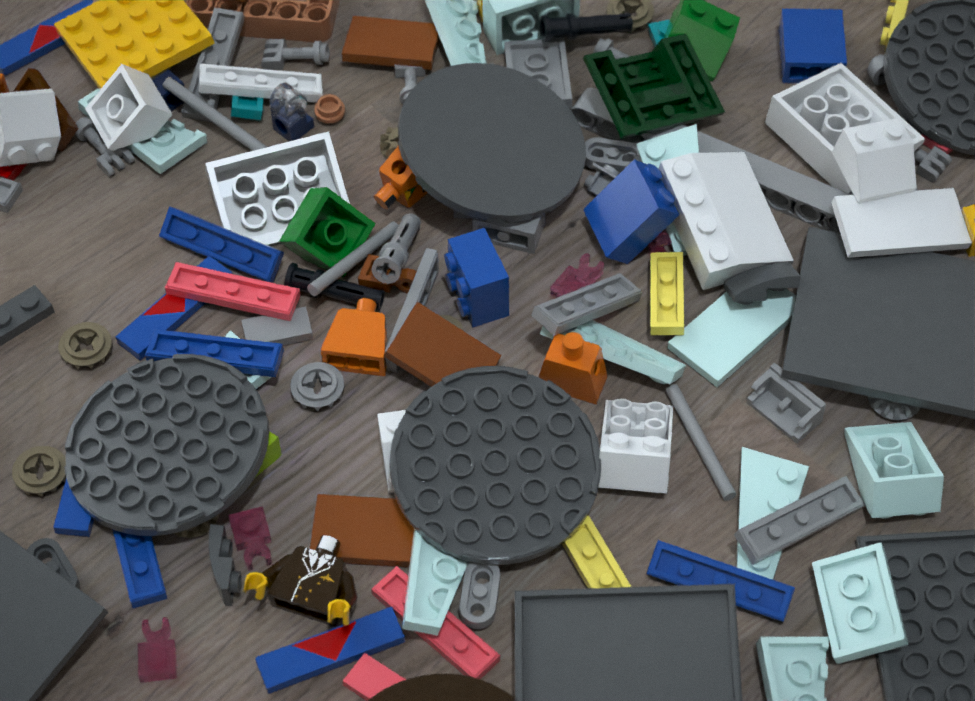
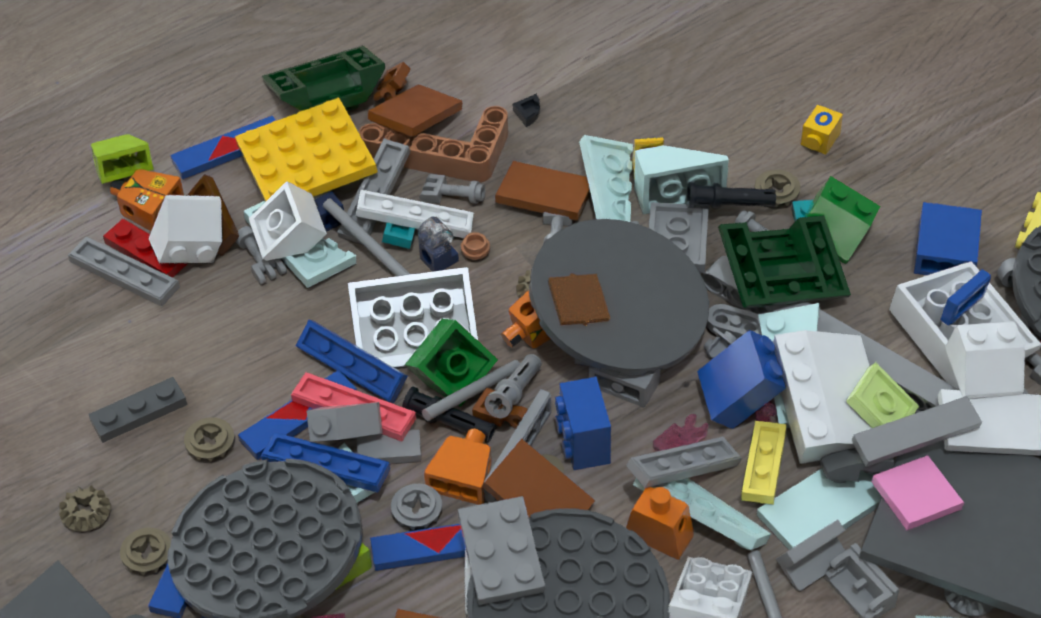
camera: 10 degrees right, 5 degrees down
(227, 308) = (344, 421): none -> light grey slope
(339, 422) = (417, 547): none -> blue tile
(418, 419) = (501, 550): none -> light grey plate
(452, 150) = (578, 299): none -> clear orange piece
(732, 382) = (812, 556): none -> light grey panel
(777, 218) = (880, 398): none -> yellowish green tile
(817, 241) = (916, 431): none -> light grey tile
(828, 303) = (917, 492): none -> bright pink tile
(844, 100) = (965, 297): none -> blue tile

